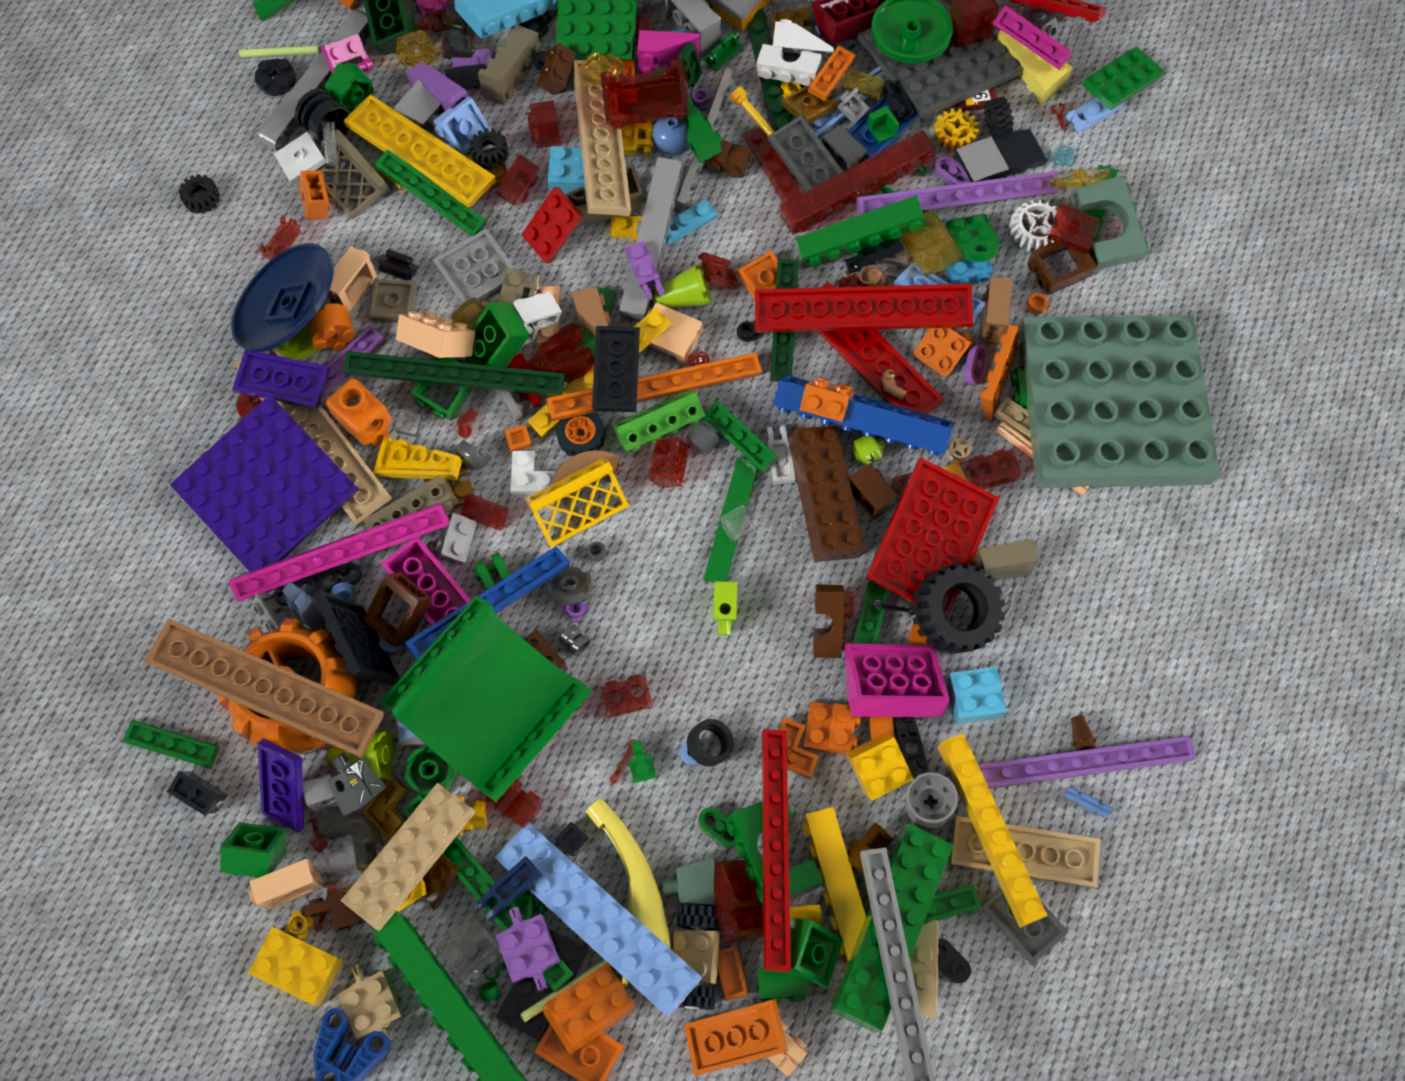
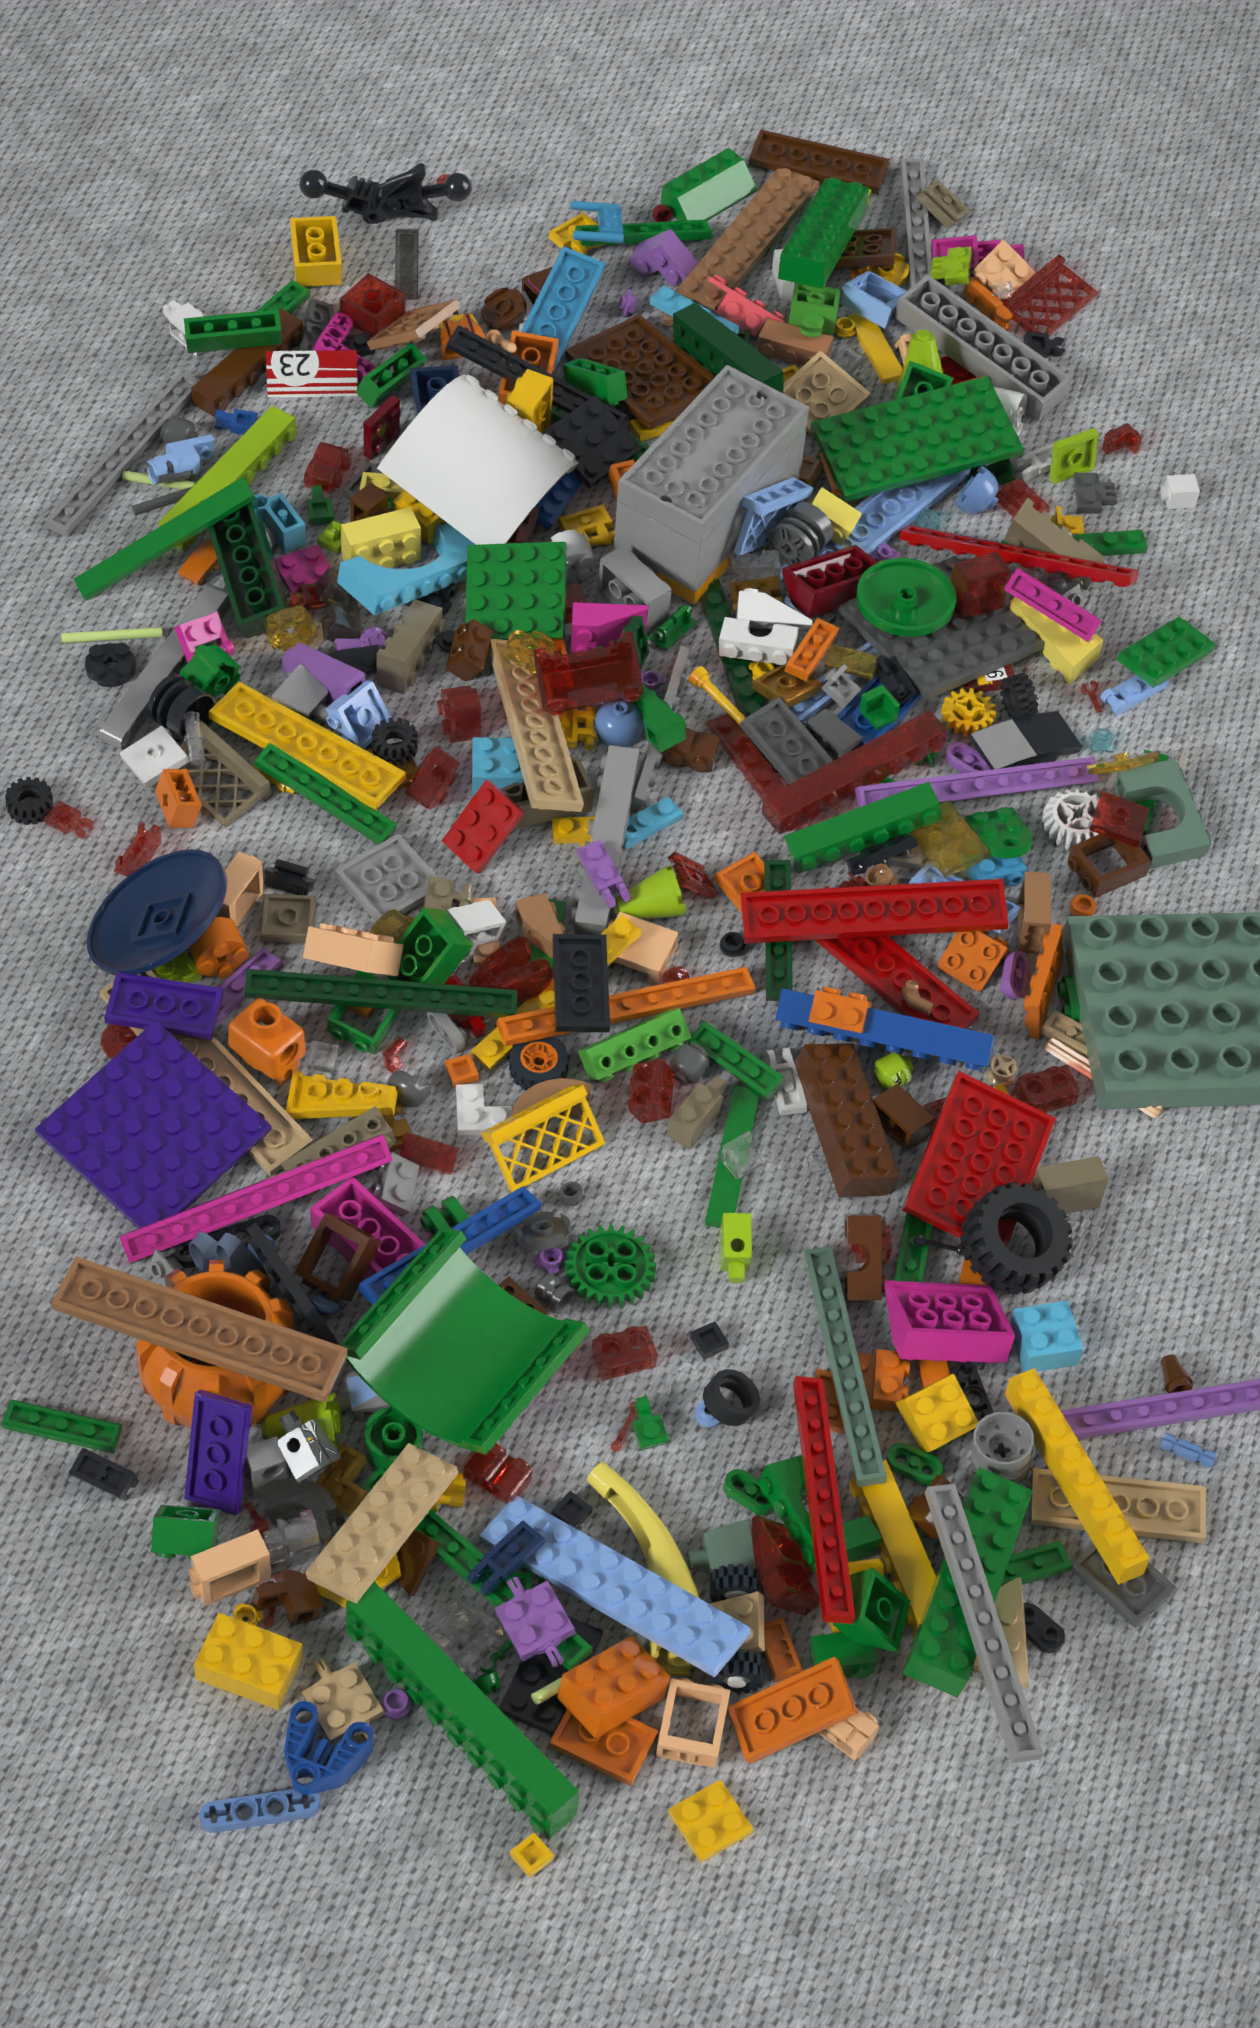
camera: 10 degrees left, 15 degrees down
(228, 209) = (68, 818): none -> clear red plate
(412, 1009) = (396, 1704): none -> medium lavender plate
(624, 598) = (610, 1286): none -> green gear
(645, 1064) = (685, 1749): none -> light nougat window
(697, 687) = (709, 1340): none -> black plate
(704, 482) = (696, 1113): none -> dark tan hinge
(806, 721) = (845, 1367): none -> sand green plate
(858, 805) = (915, 1463): none -> green plate

